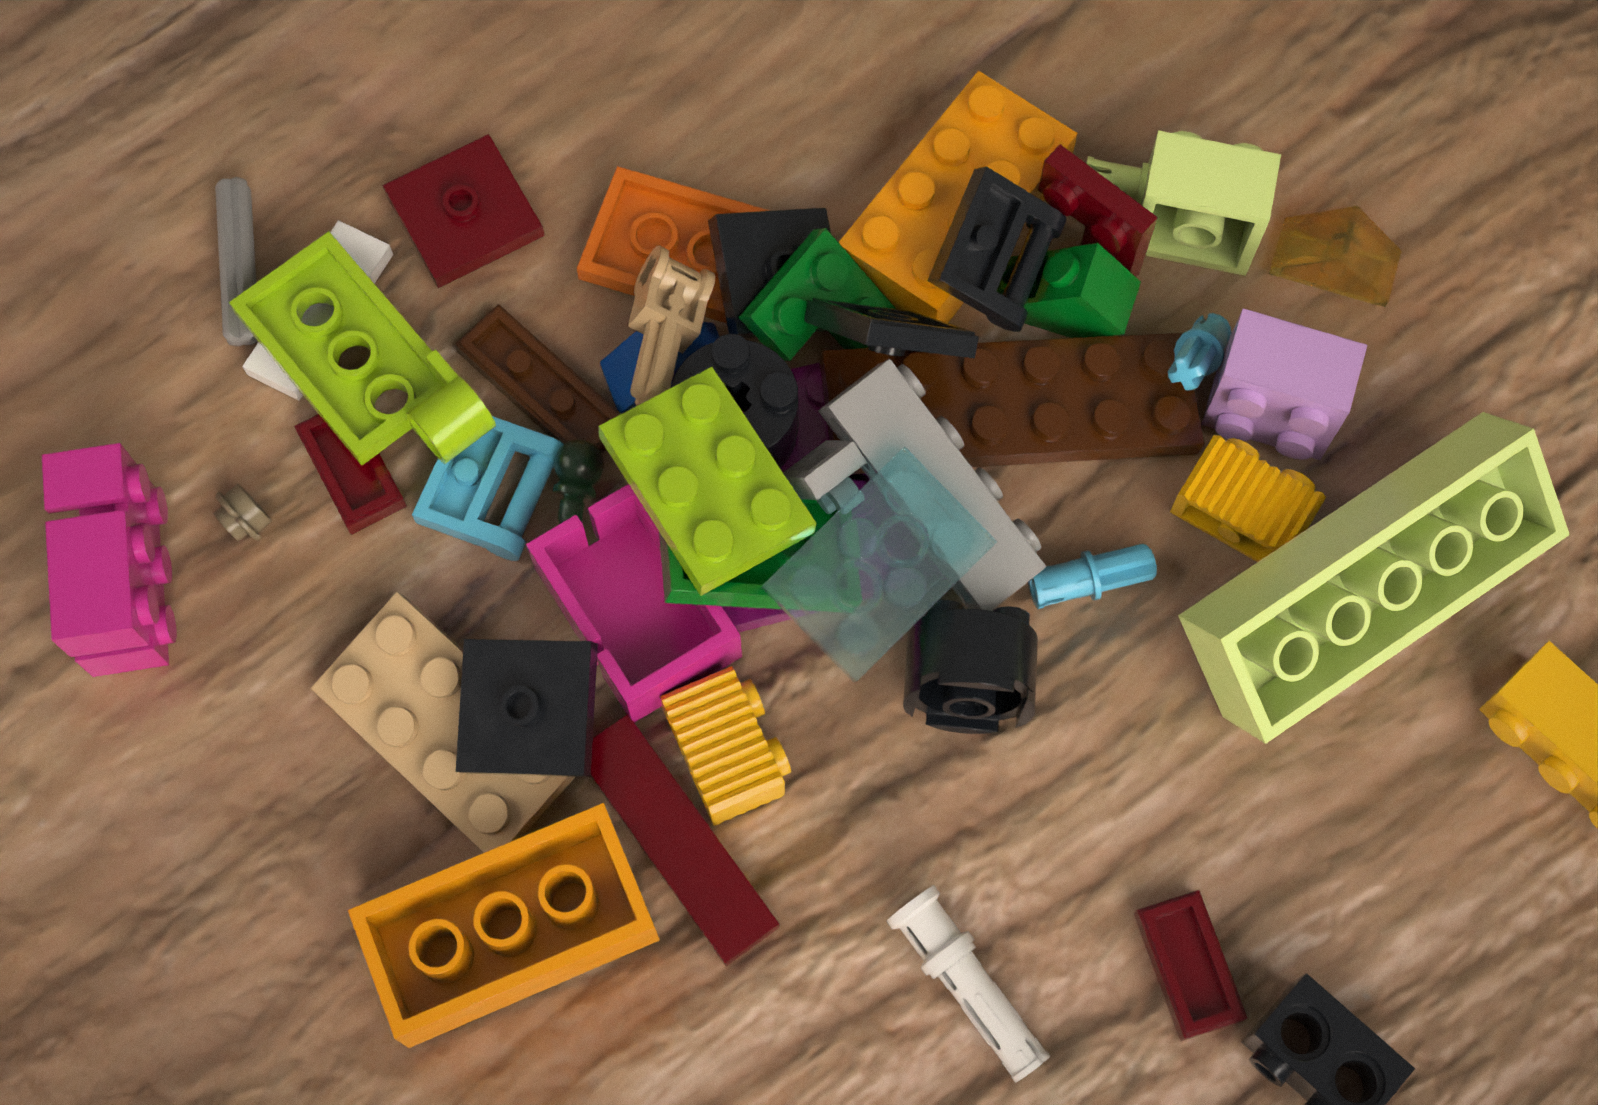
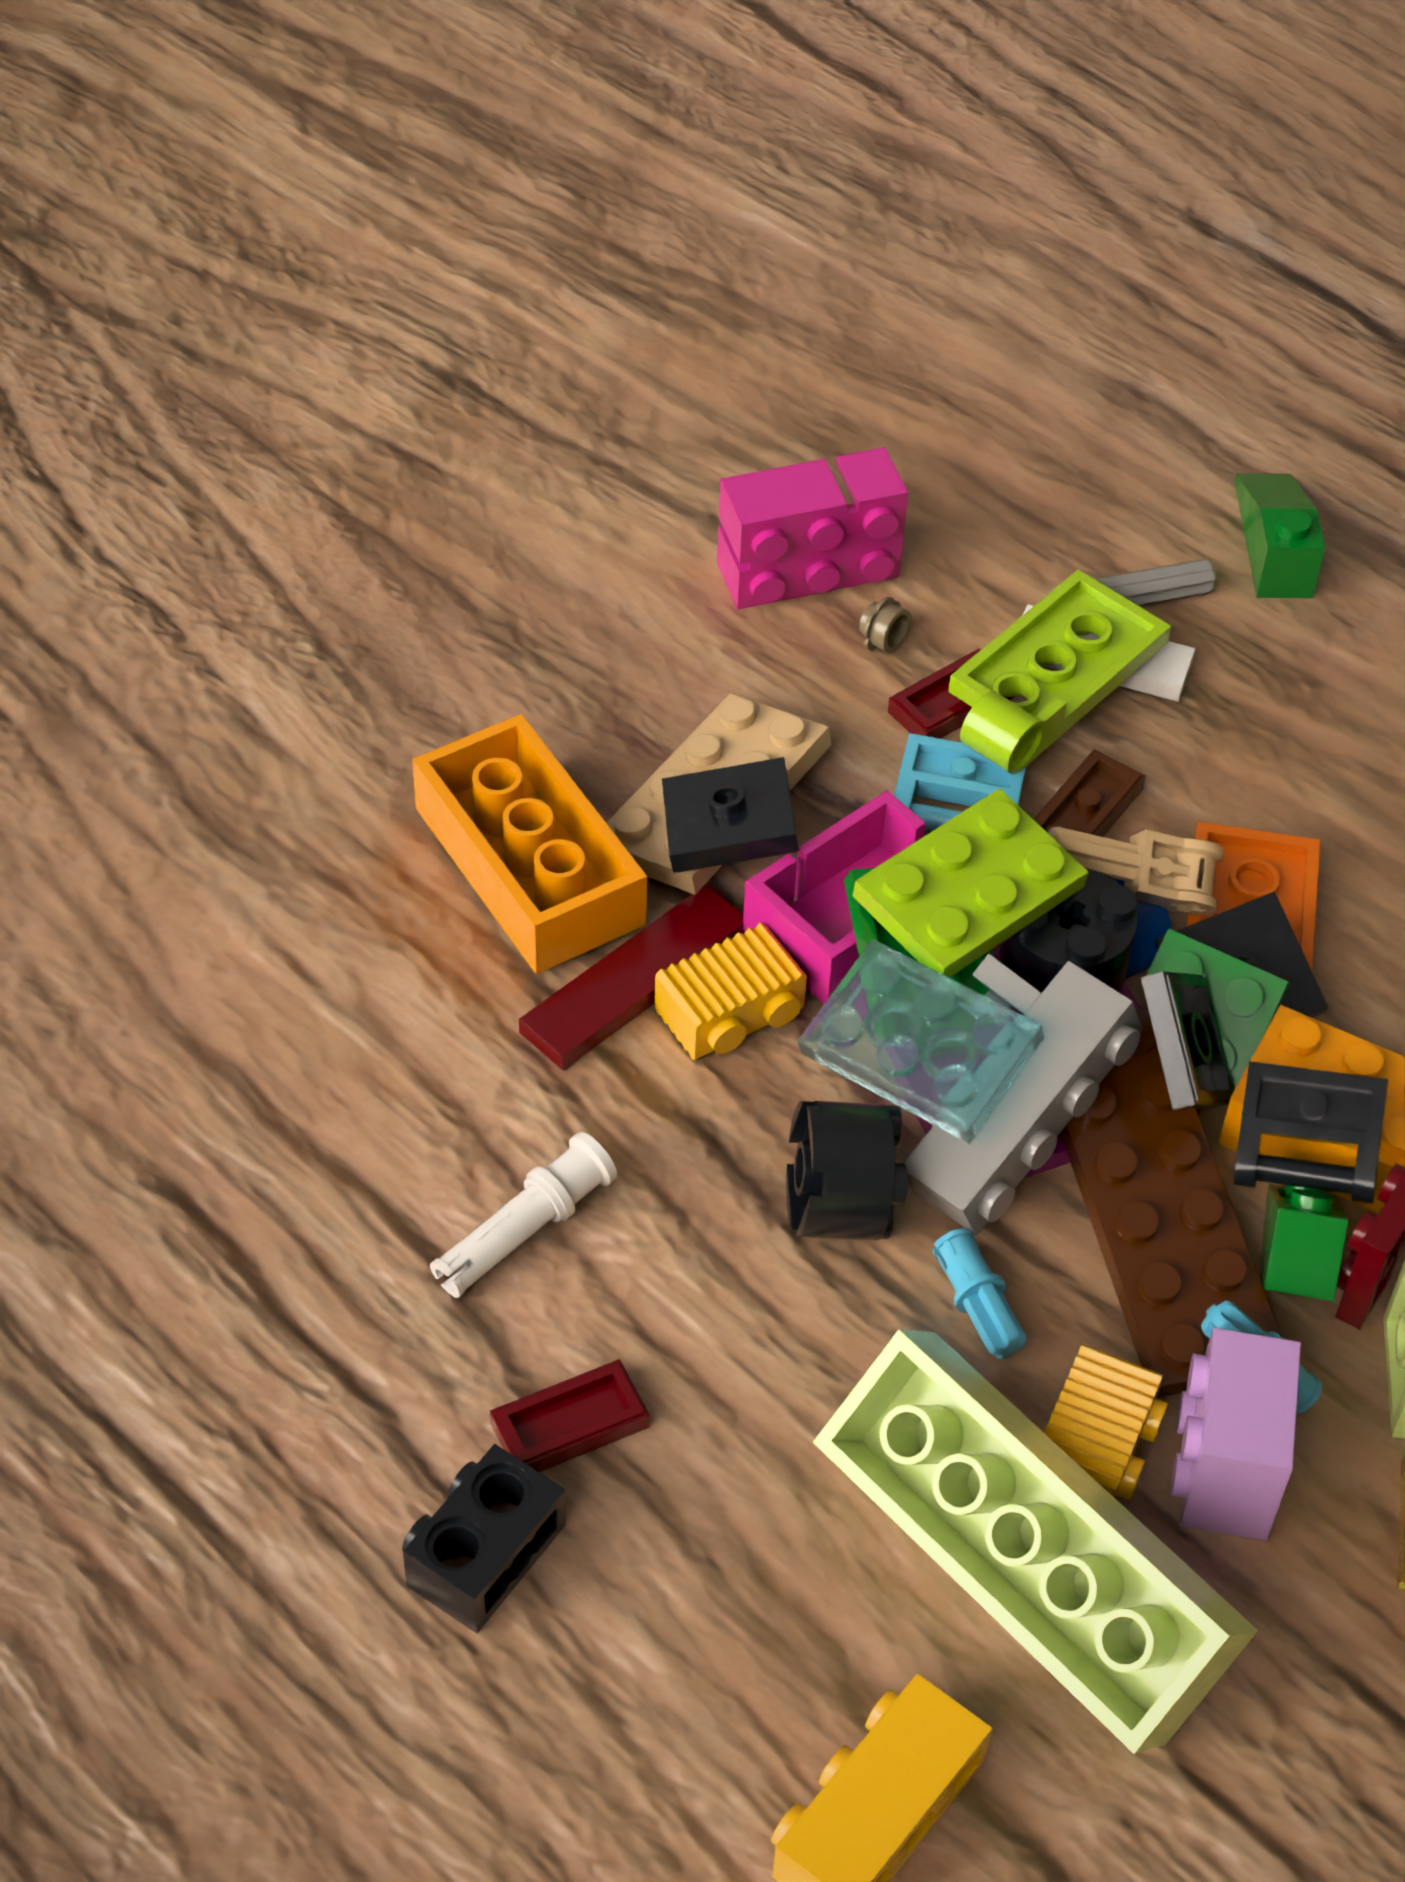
camera: 80 degrees right, 20 degrees down
(187, 103) = (1280, 535): none -> green slope
(463, 210) = (1239, 742): dark red plate -> none

